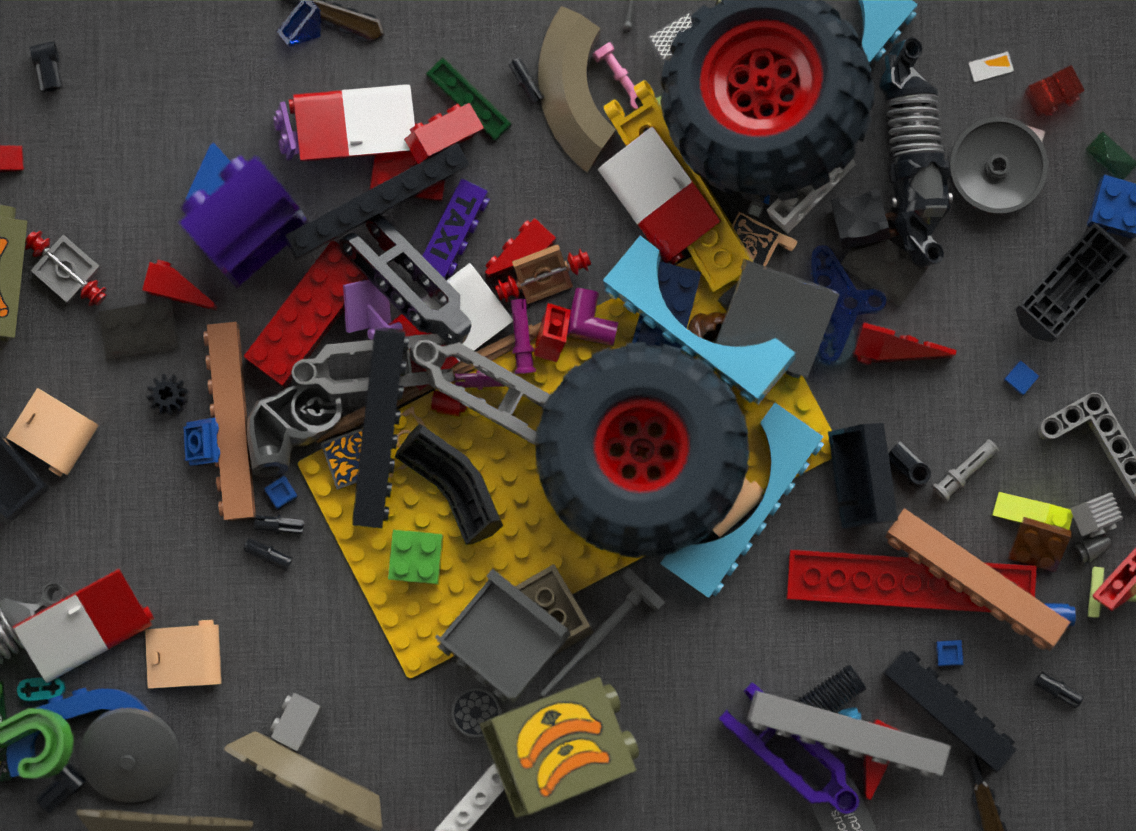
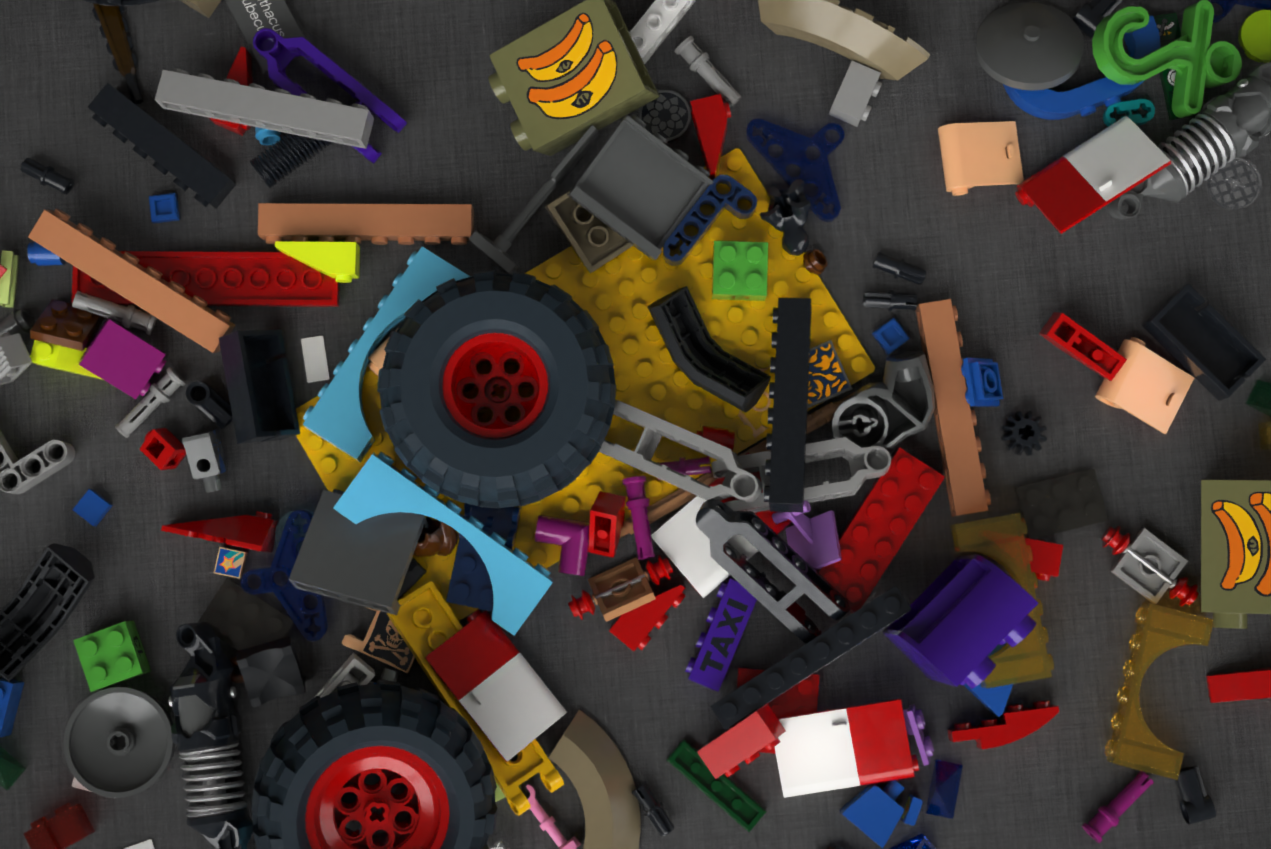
camera: 175 degrees right, 0 degrees up
(63, 209) = (1132, 740): none -> clear yellow arch
(107, 469) = (1082, 345): none -> red slope
(123, 53) = (1108, 815): none -> magenta pin
(196, 295) = (1005, 543): none -> clear yellow arch
(198, 135) = (1014, 725): none -> red slope
(266, 85) = (944, 789): none -> clear blue slope
(297, 67) = (911, 810): none -> blue tile
(329, 68) = (875, 811): none -> blue torso
(342, 651) = (794, 149): none -> clear blue beam
(345, 564) = (815, 261): none -> reddish brown plate
(366, 608) = (789, 214): none -> black animal
(433, 699) = (710, 123): none -> red slope
(439, 761) = (700, 63): none -> light grey pin
(445, 604) = (704, 222): none -> dark blue beam
(759, 625) = (366, 223): none -> nougat brick
(794, 590) = (333, 259): none -> neon yellow slope
(813, 503) = (315, 359): none -> white sticker
(897, 319) = (230, 562): none -> tile
(914, 423) = (205, 447): none -> dark grey torso
(954, 426) = (163, 448): none -> red brick
(984, 550) = (128, 316): none -> light grey pin
(988, 509) = (123, 359): none -> magenta brick
(1004, 242) = (112, 655): none -> bright green brick

